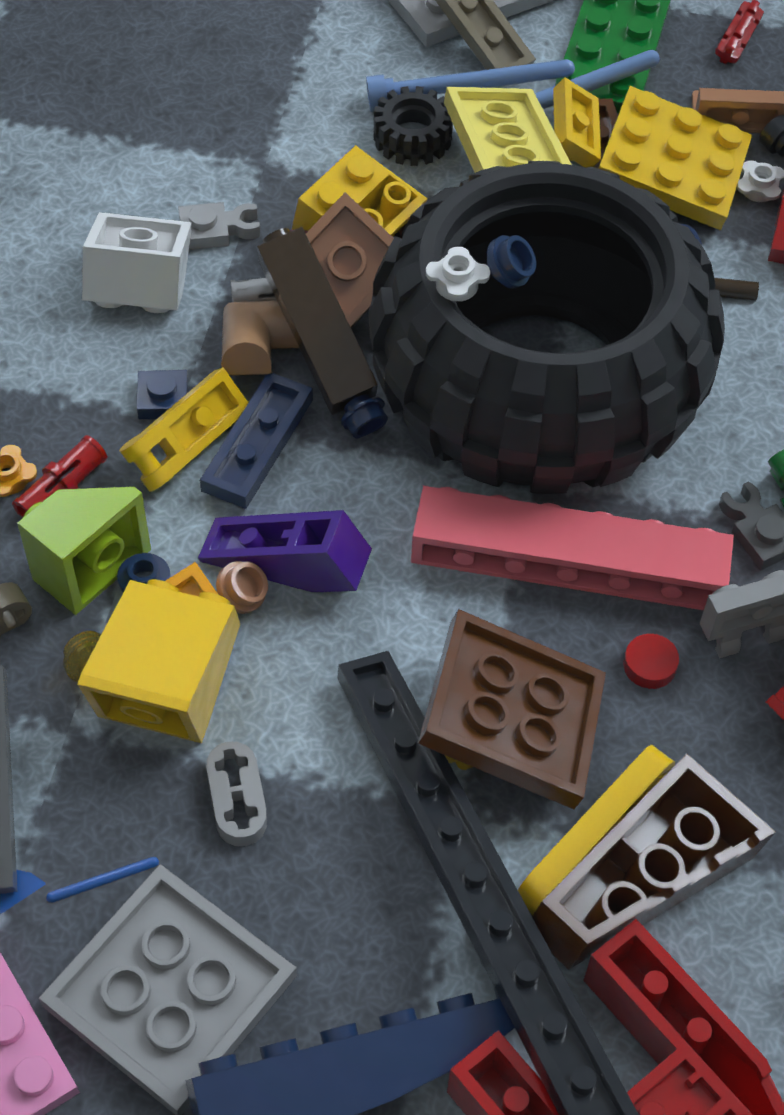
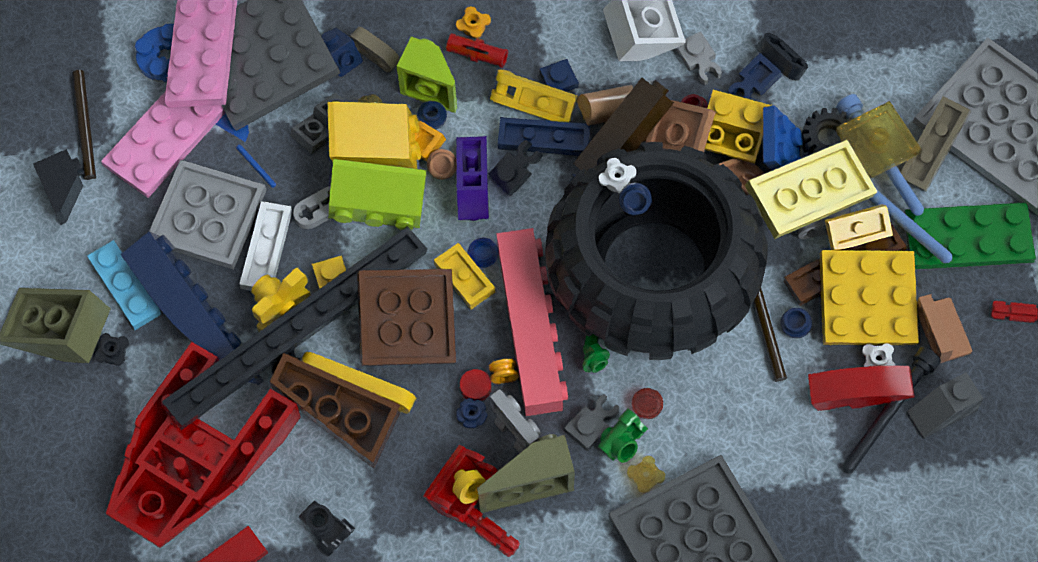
camera: 75 degrees right, 10 degrees up
(76, 743) = (314, 131): none -> dark grey slope
(266, 133) = (782, 56): none -> black beam
(269, 684) = (376, 194): none -> lime slope
(281, 903) = (266, 243): none -> white plate
(284, 169) = (757, 77): none -> dark blue plate
(296, 489) = (512, 170): none -> black plate
(372, 816) = (328, 270): none -> yellow plate
(409, 899) = (278, 297): none -> yellow plant
(417, 163) = (780, 139): none -> blue plate
(421, 580) = (483, 252): none -> clear blue plate
(429, 616) = (466, 276): none -> yellow plate
(451, 60) = (879, 139): none -> clear yellow plate
(644, 610) = (503, 371): none -> light orange bush
(659, 487) = (595, 357): none -> green plate
(695, 690) = (475, 420): none -> dark blue plate
(751, 448) = (647, 403): none -> clear red plate

